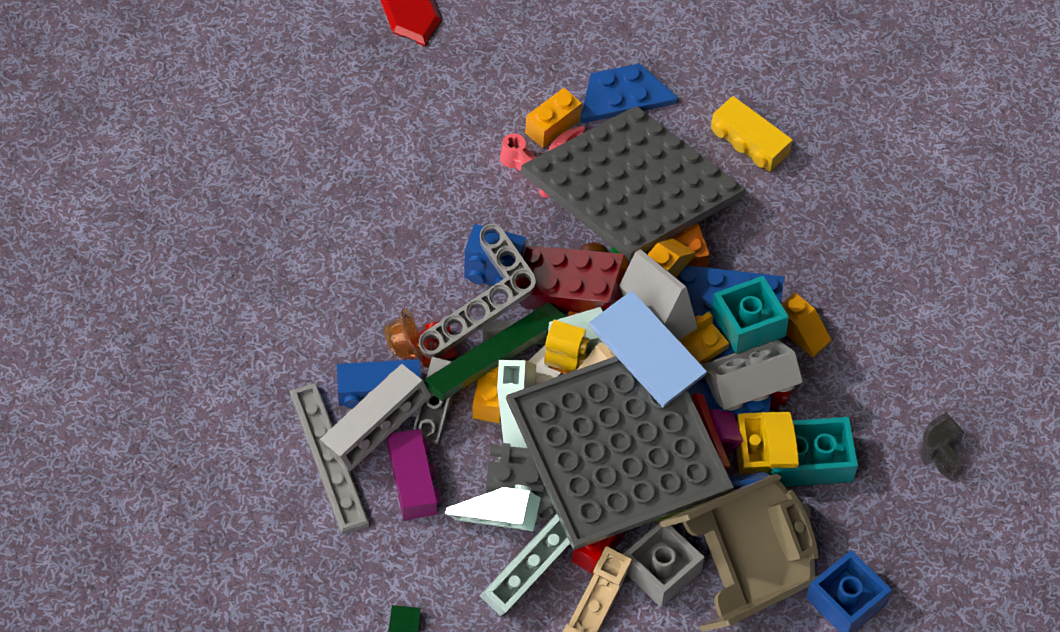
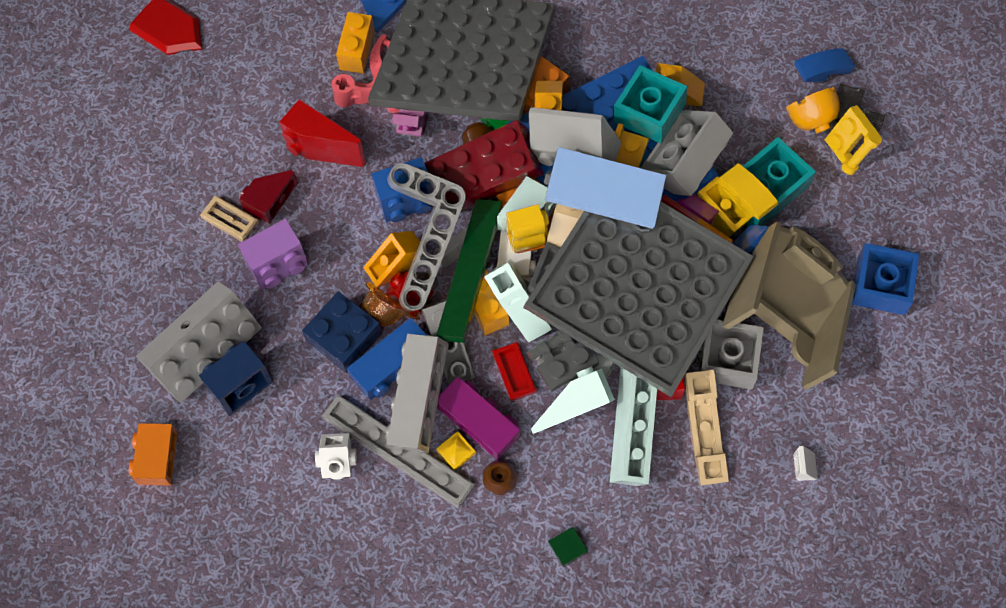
camera: 30 degrees left, 10 degrees up
(137, 331) = (153, 454): none -> orange brick
(237, 267) = (198, 339): none -> light grey brick
(243, 314) = (235, 377): none -> dark blue brick
(274, 425) = (335, 456): none -> white brick
(345, 210) = (246, 230): none -> tan tile
(348, 240) = (273, 254): none -> medium lavender brick
(357, 334) = (342, 331): none -> dark blue brick
(375, 489) = (456, 451): none -> yellow tile
(385, 193) = (268, 194): none -> dark red slope
(393, 540) = (502, 485): none -> reddish brown plate
(442, 303) = (392, 257): none -> light orange slope
(458, 172) = (319, 137): none -> red slope
(472, 461) = (514, 371): none -> red tile
(547, 209) = (410, 122): none -> magenta brick
(906, 420) = (815, 110): none -> light orange cylinder
(917, 463) = (847, 135): none -> yellow plate
(946, 388) = (821, 64): none -> blue slope

